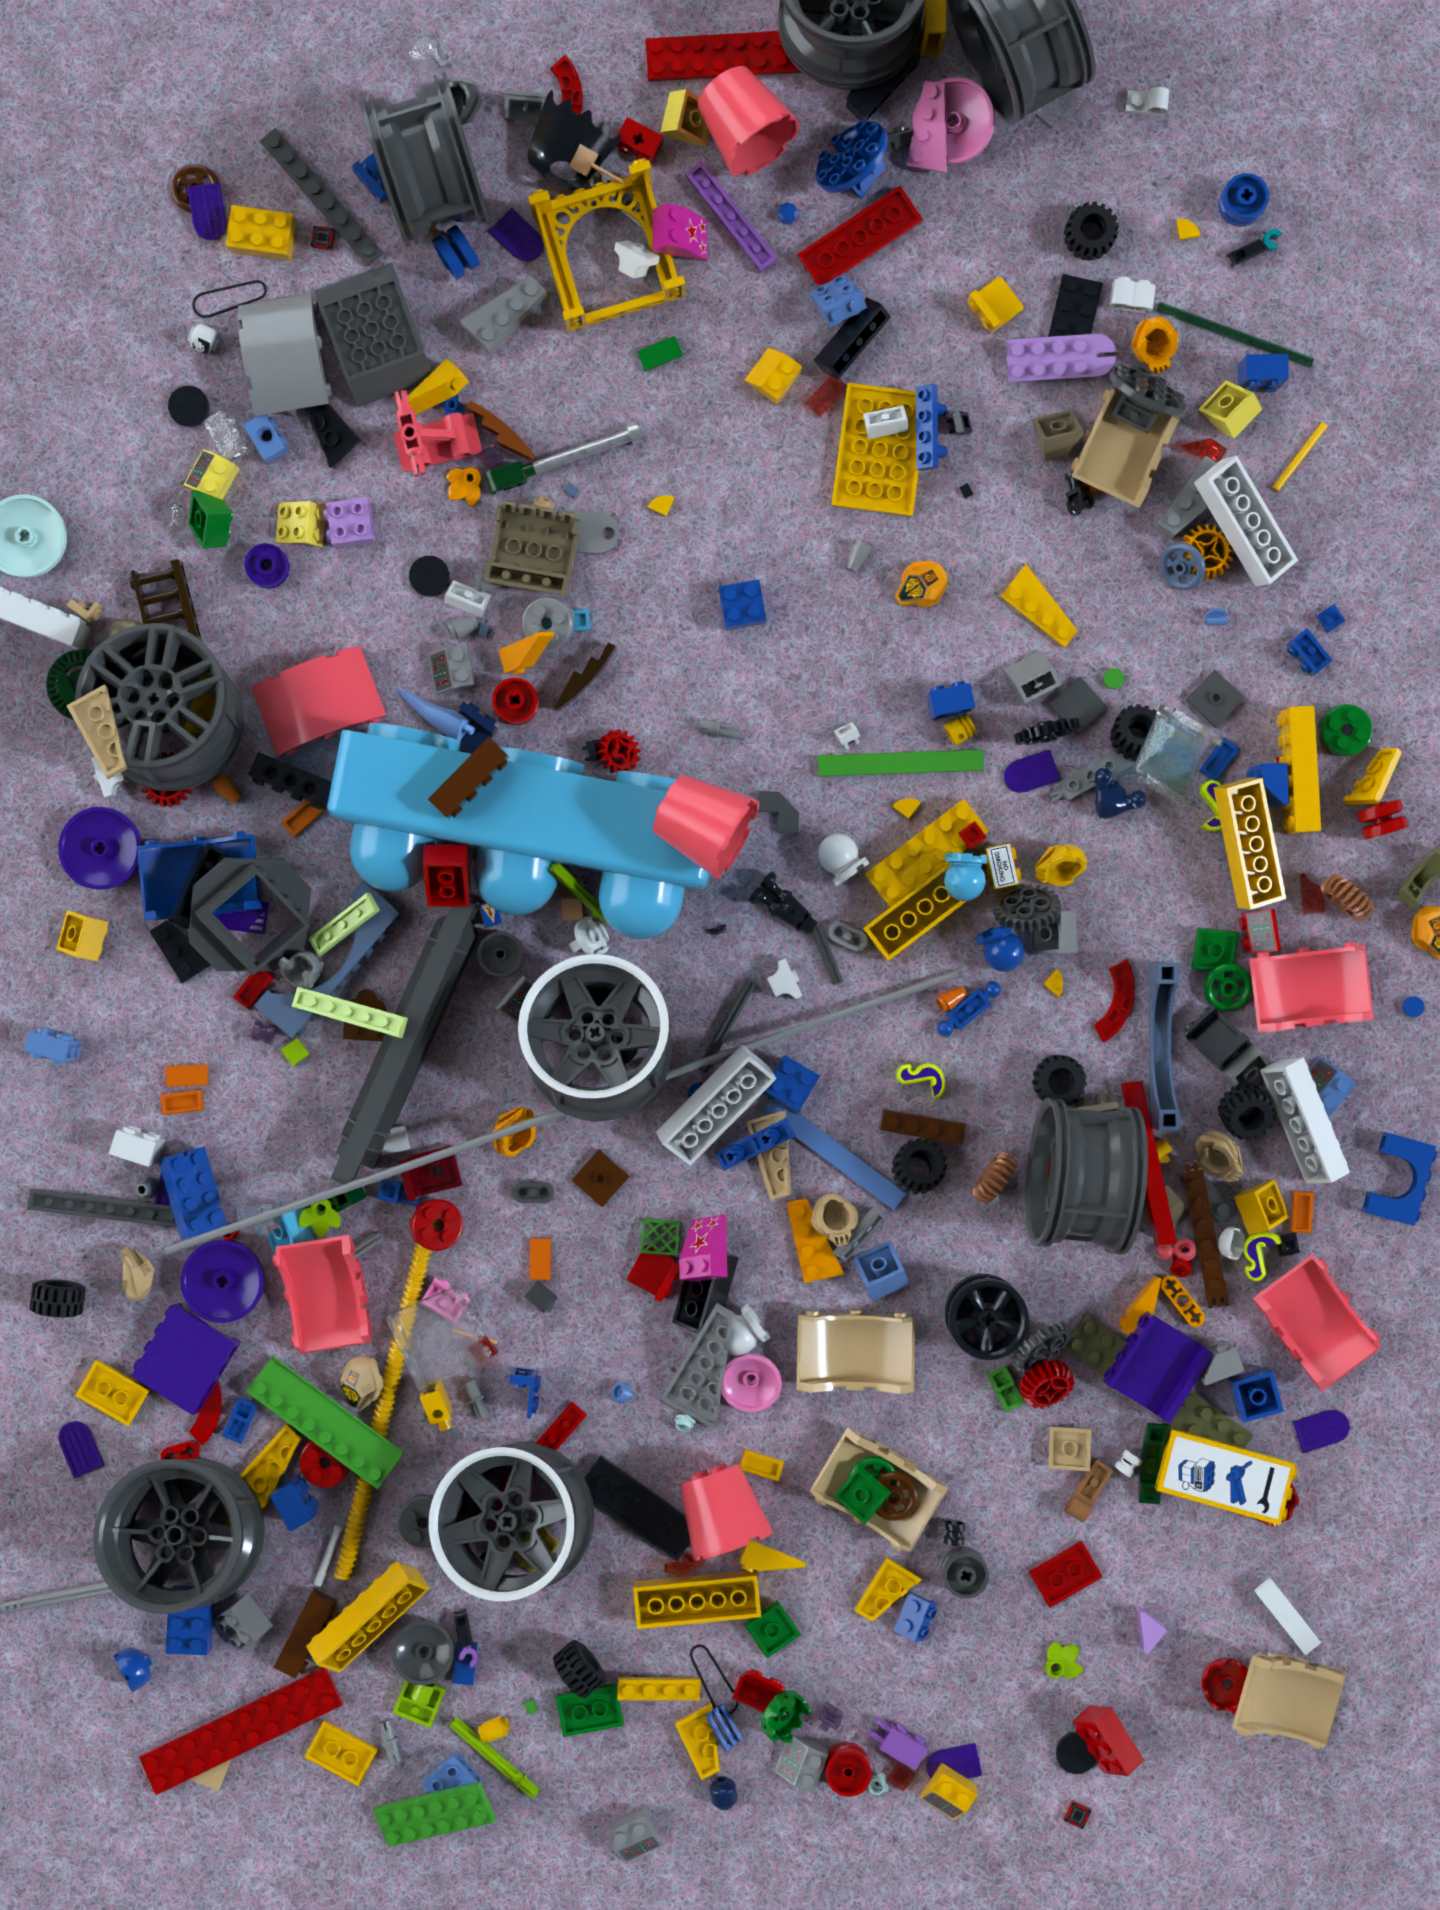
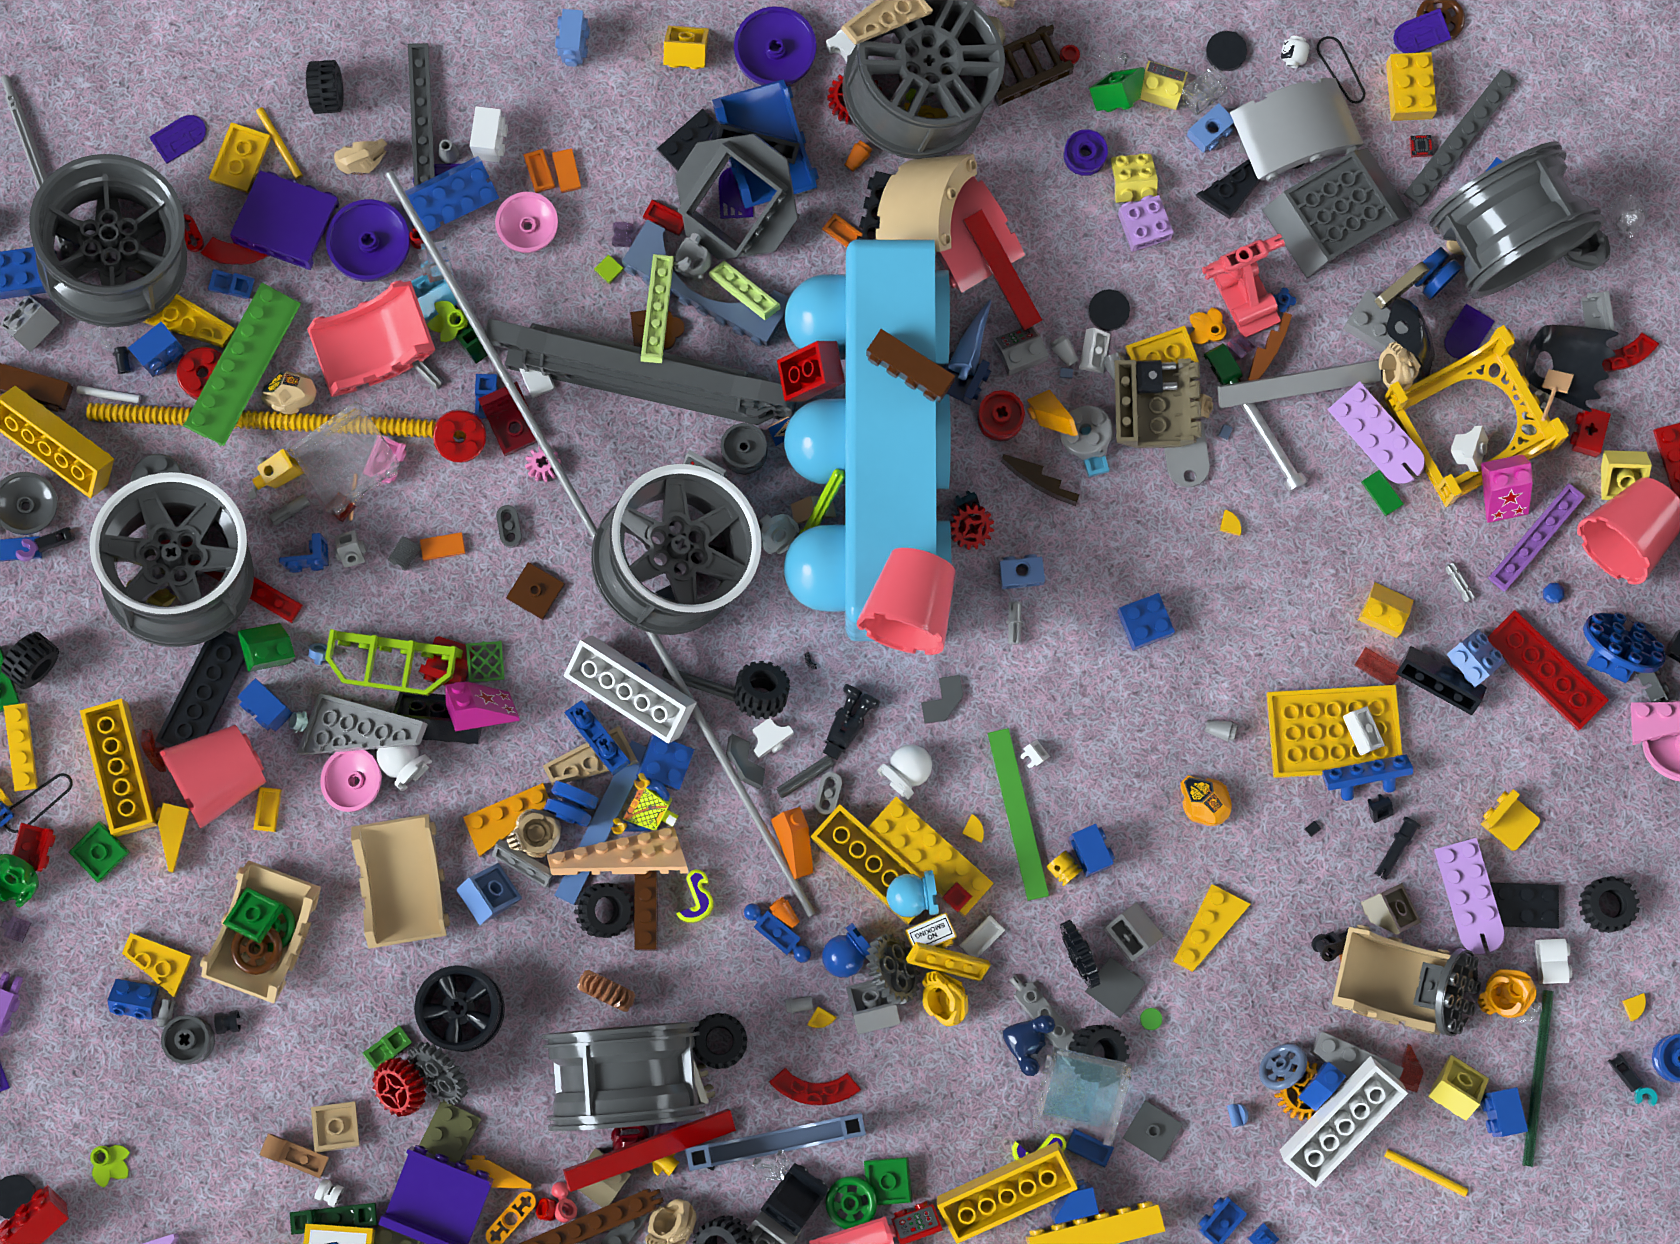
camera: 85 degrees right, 10 degrees down
(104, 1351) = (279, 143): none -> yellow bar
(162, 560) = (1069, 52): none -> red plate
(220, 1127) = (526, 209): none -> bright pink dish
(290, 734) = (922, 198): none -> tan panel
(296, 1537) = (122, 360): none -> black pin
(372, 670) = (1002, 270): none -> red tile
(437, 387) = (1296, 280): yellow slope -> none
(464, 287) = (1401, 285): none -> dark tan beam
(478, 1157) = (534, 467): none -> bright pink gear
(479, 531) = (1164, 347): none -> yellow wing
(505, 549) = (1150, 377): none -> black piece
(513, 1144) = (556, 497): light orange helmet -> none
(523, 283) = (1417, 338): none -> black piece
(531, 1347) = (350, 549): none -> light grey brick
(539, 409) = (1298, 383): none -> light grey tile
(544, 308) = (1398, 366): none -> tan helmet
(603, 344) = (1378, 434): none -> lavender plate
(606, 1442) = (266, 647): none -> green slope
(627, 1327) = (386, 645): none -> lime plate
(664, 1453) = (261, 702): none -> blue brick
(674, 700) = (1011, 579): none -> medium blue brick
(726, 975) = (761, 703): none -> black tyre
(760, 299) = (1460, 582): none -> light grey axle
(813, 1008) = (748, 771): none -> dark grey tile
(816, 1181) = (570, 807): none -> blue wheel
(831, 1109) = (647, 808): none -> torso
(872, 1135) = (625, 855): none -> light nougat wing
(886, 976) = (795, 841): none -> orange slope
(935, 1589) = (165, 1013): none -> light grey pin
(992, 409) = (1402, 839): none -> black pin
(1009, 819) = (982, 937): none -> white tile
(1029, 855) = (948, 961): none -> yellow tile
(1031, 772) = (1035, 952): dark purple window -> none
(1038, 1001) = (798, 1004): none -> light grey pin
(1065, 1574) = (202, 1149): red tile -> none
(1185, 1053) = (772, 1168): none -> clear bracket
(1209, 533) = (1321, 1086): none -> blue slope

